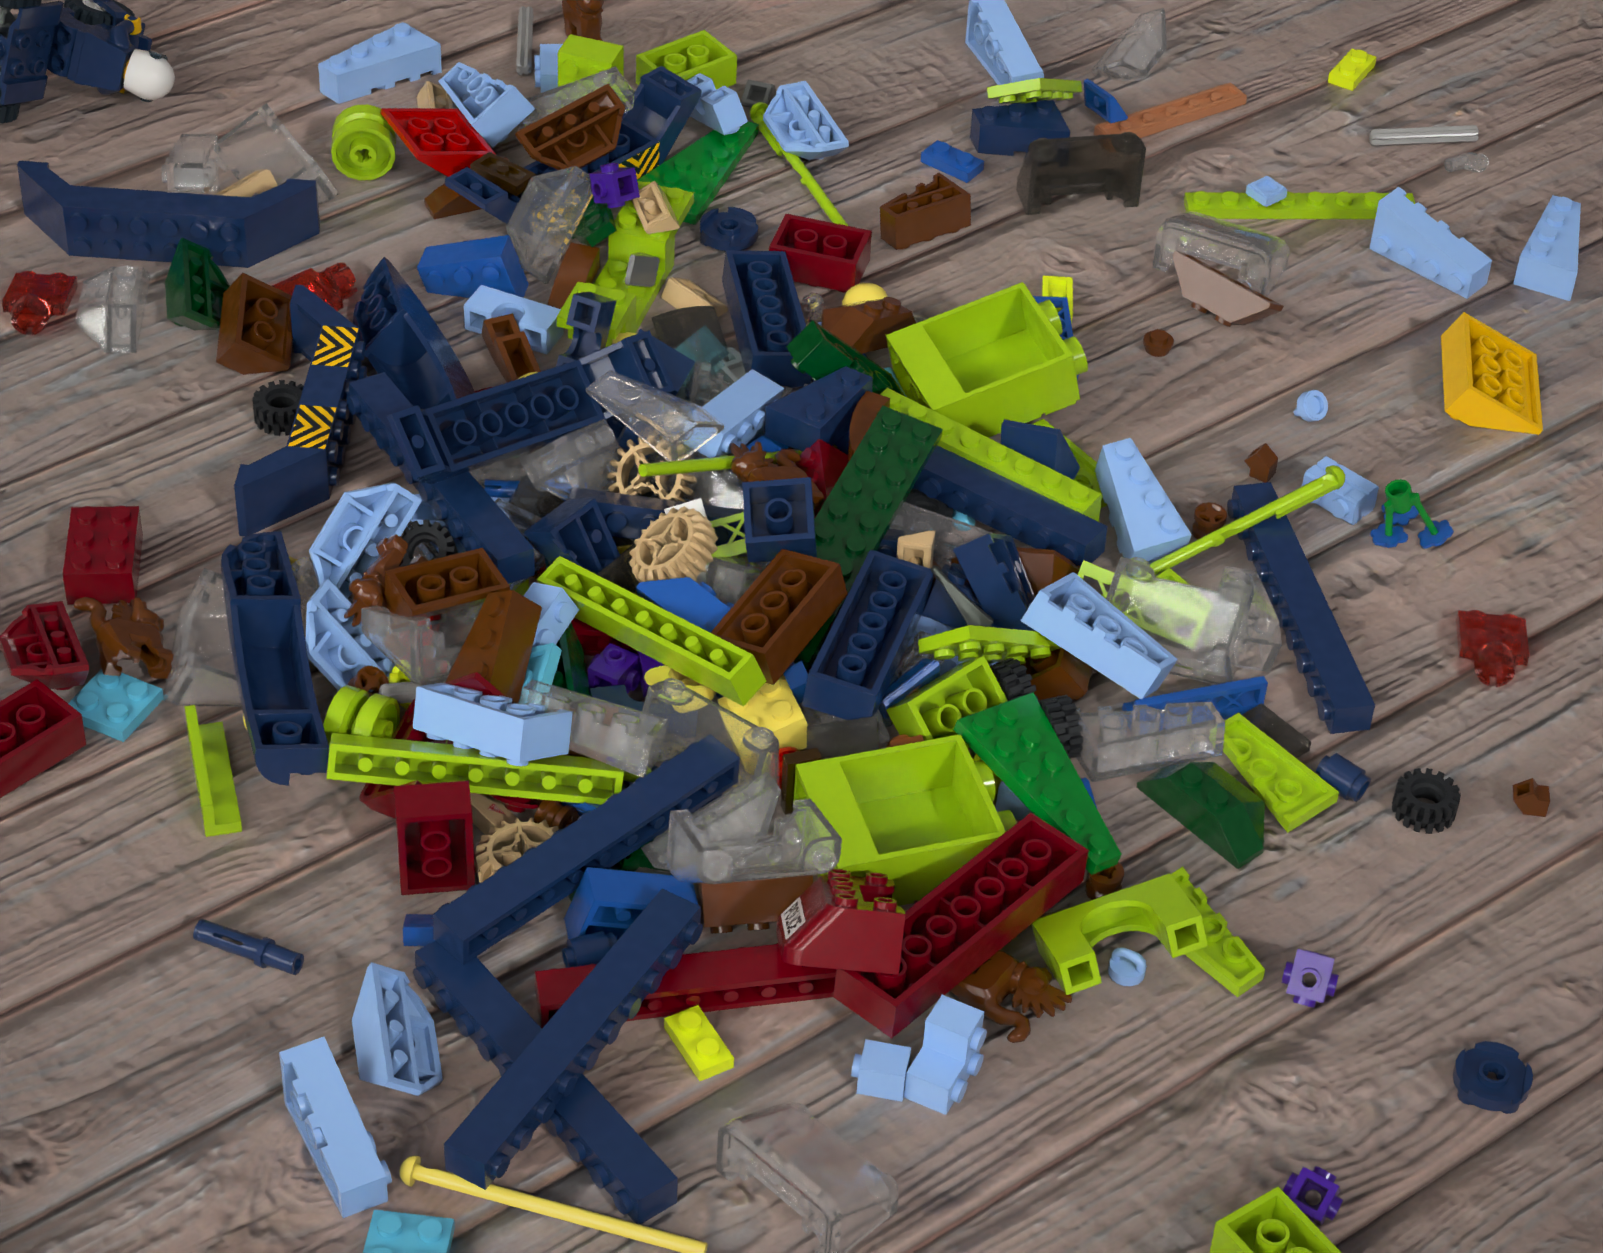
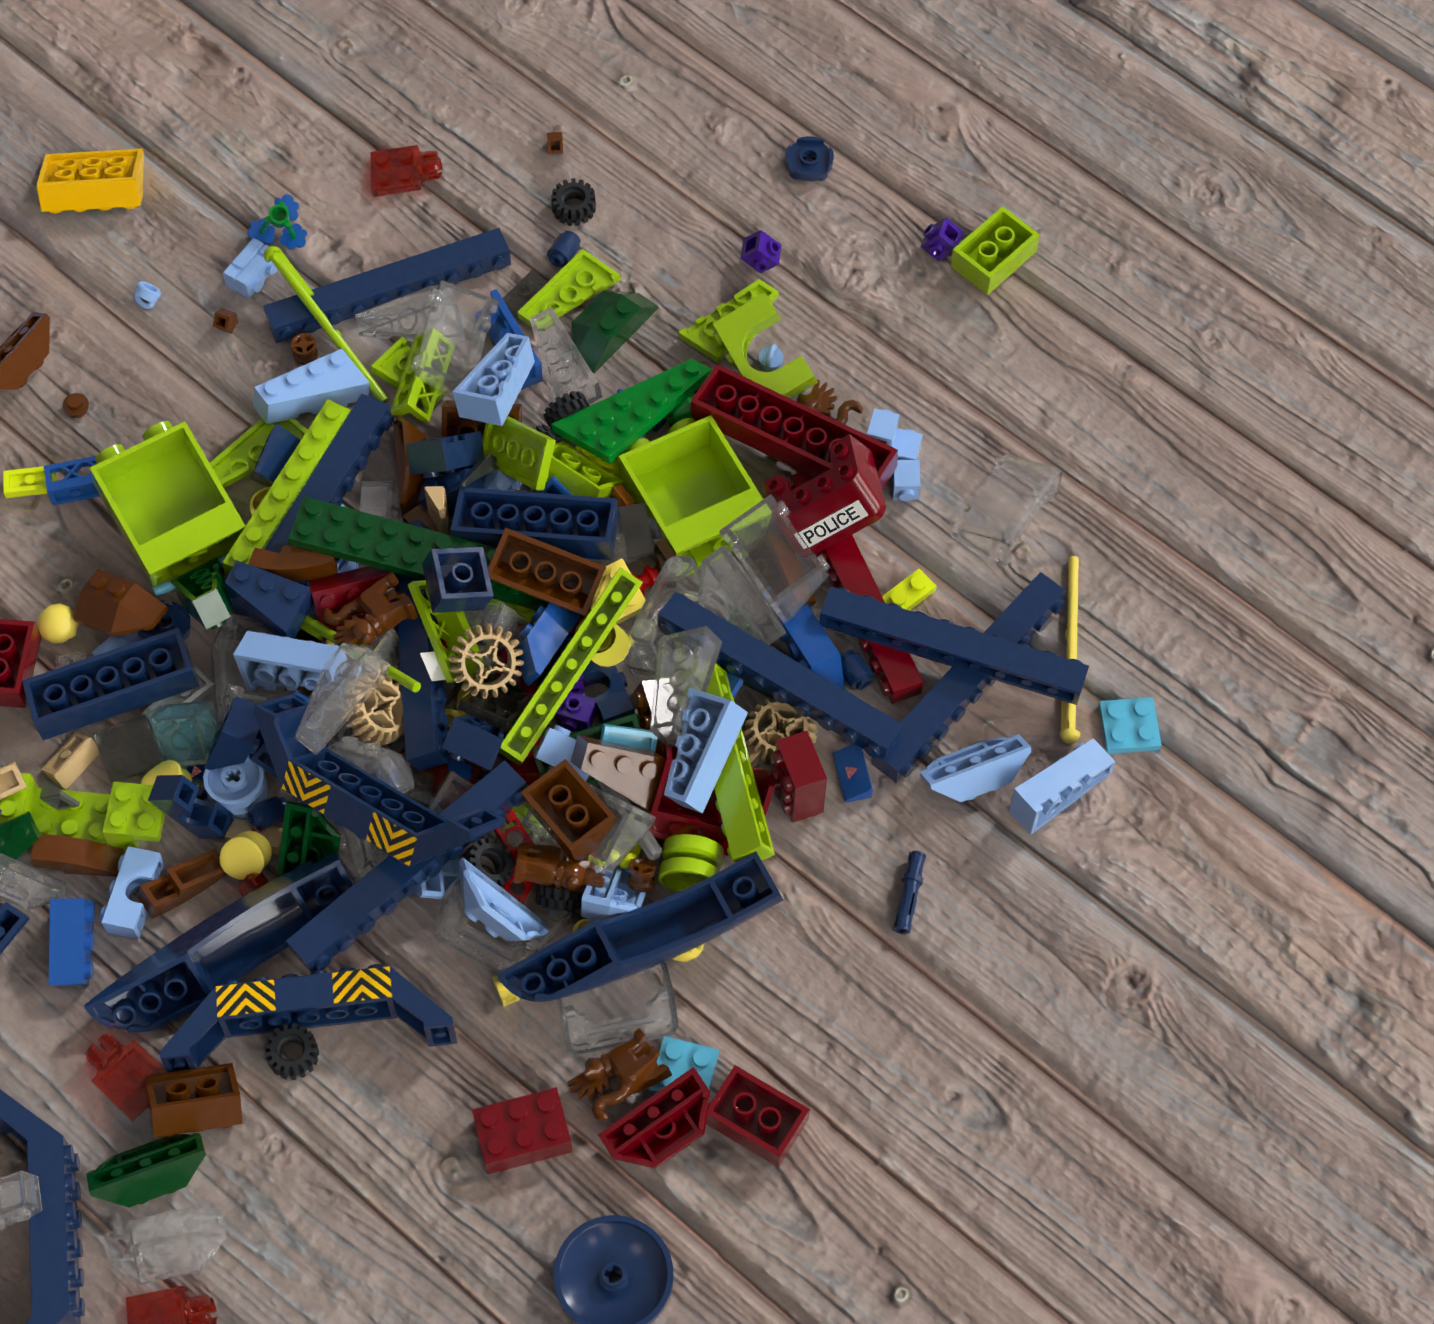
camera: 100 degrees left, 20 degrees up
(213, 776) = (746, 970): lime fence -> none

